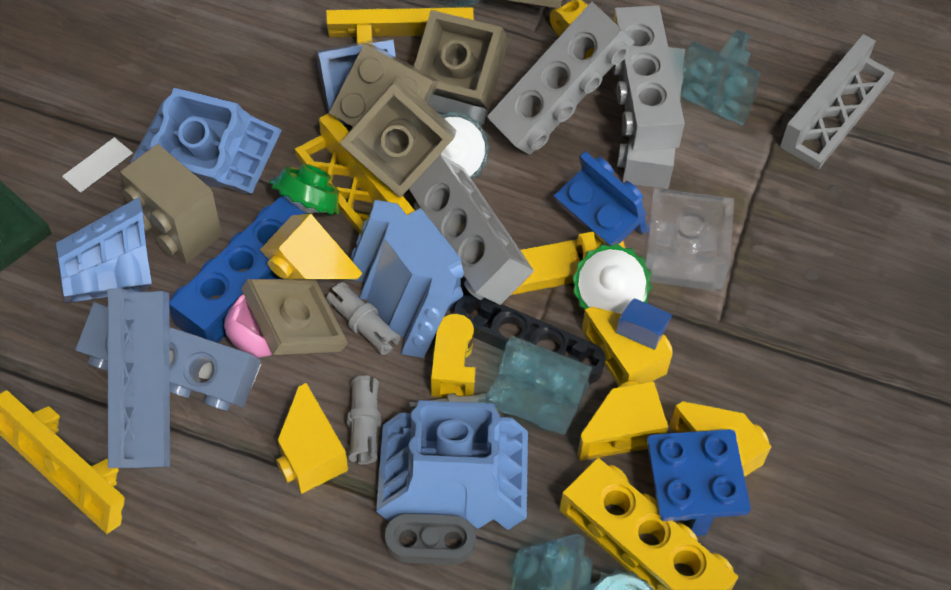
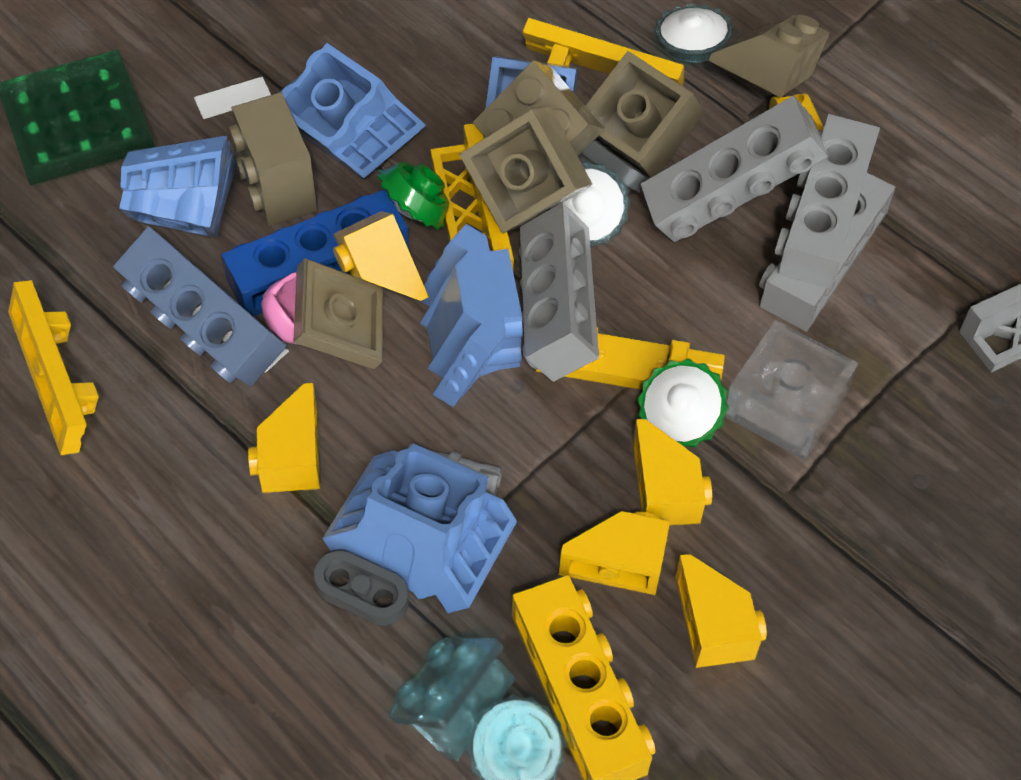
camera: 25 degrees right, 0 degrees up
(138, 379) = (155, 317): sand blue fence -> none
(363, 318) = (410, 344): light grey pin -> none
(364, 420) = (357, 444): light grey pin -> none
(452, 348) = (475, 416): yellow leg -> none
(532, 332) = (575, 425): black beam -> none
(539, 385) = (547, 479): clear light blue bracket -> none
(603, 201) = (715, 316): blue bracket -> none
(643, 323) = (688, 456): blue slope -> none
(698, 477) = (663, 638): blue bracket -> none
(721, 79) = (920, 231): clear light blue bracket -> none

